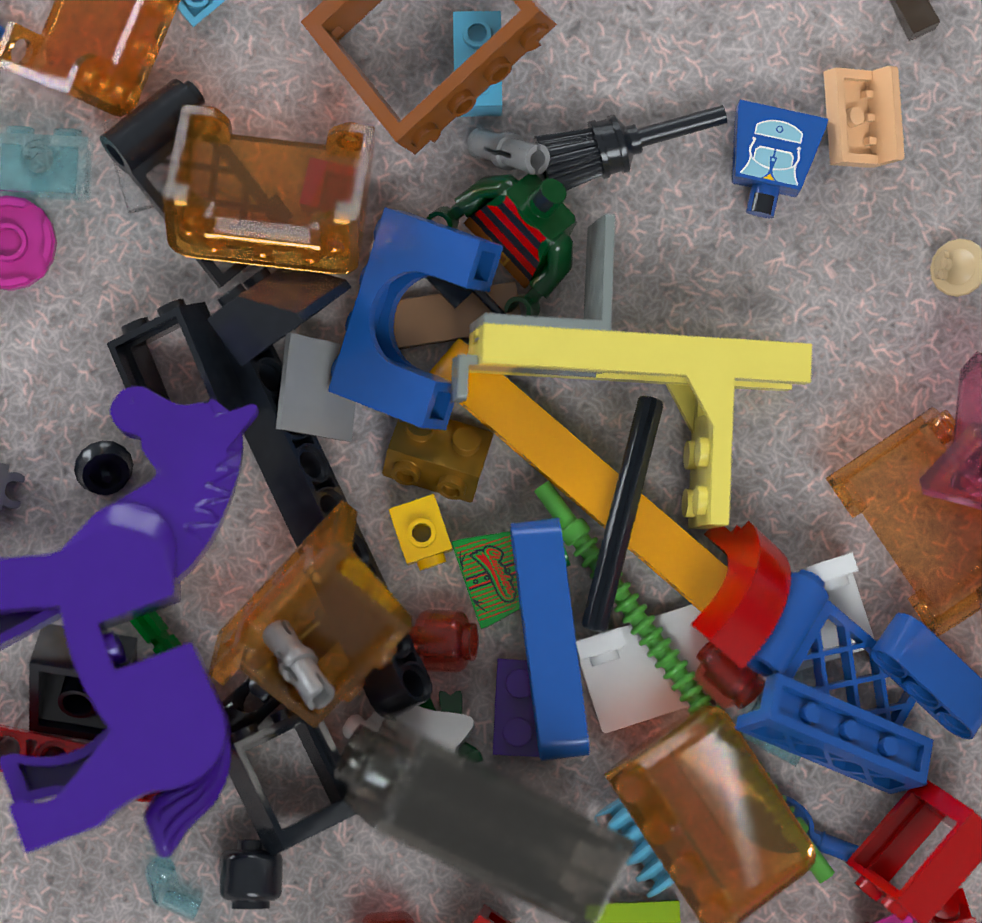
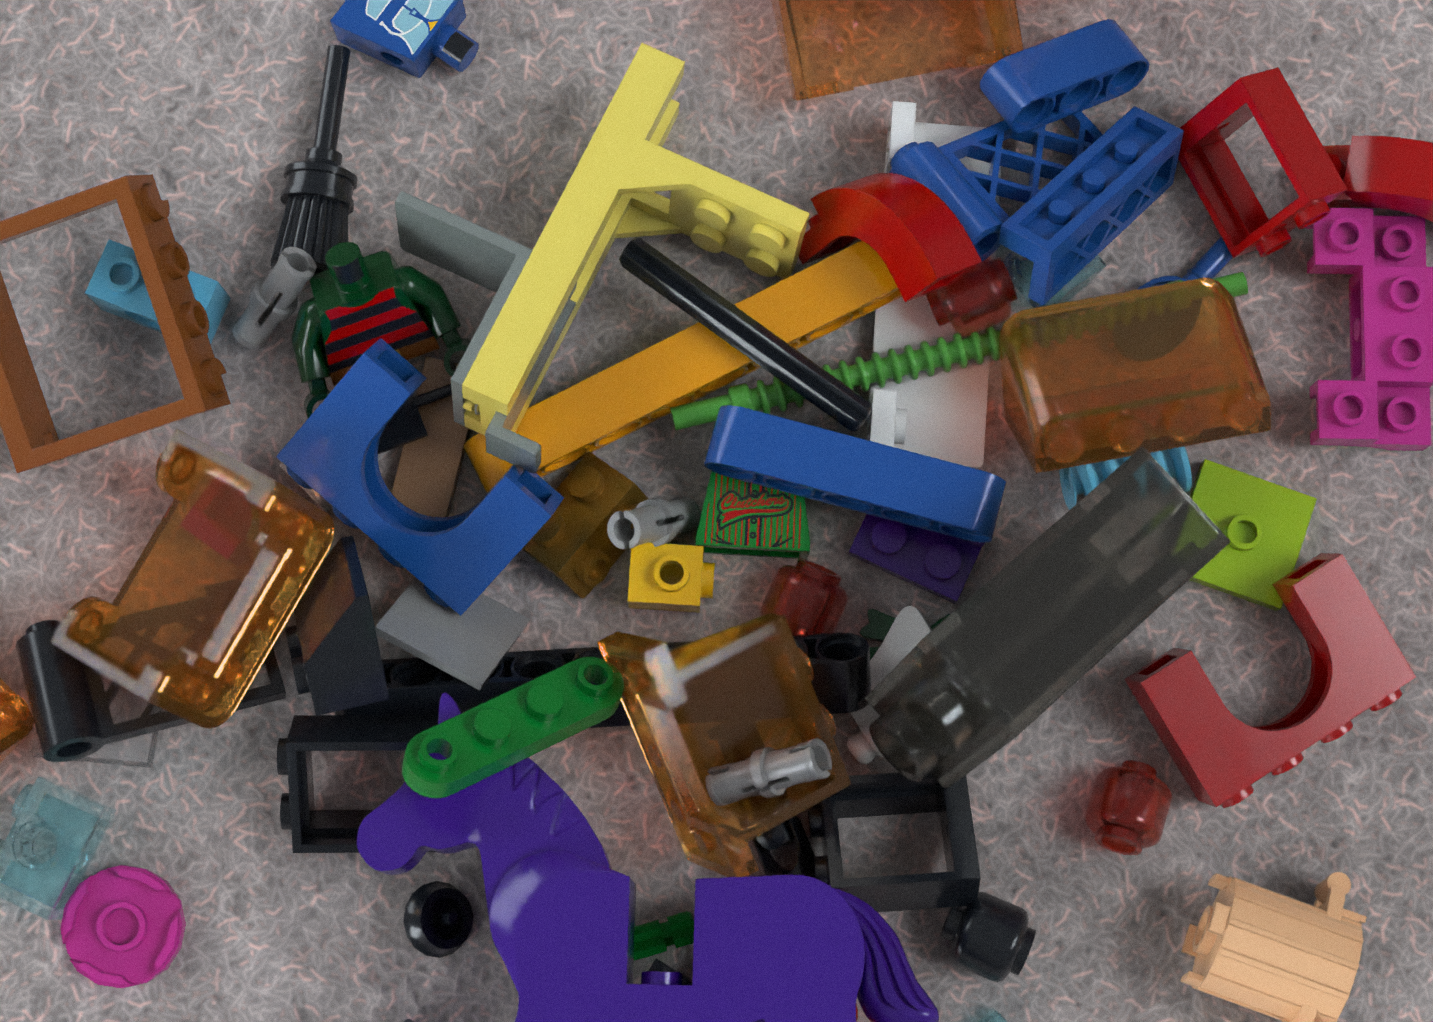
camera: 70 degrees left, 5 degrees down
(251, 465) = (511, 727): none -> green plate
(454, 504) = (653, 522): none -> light grey pin

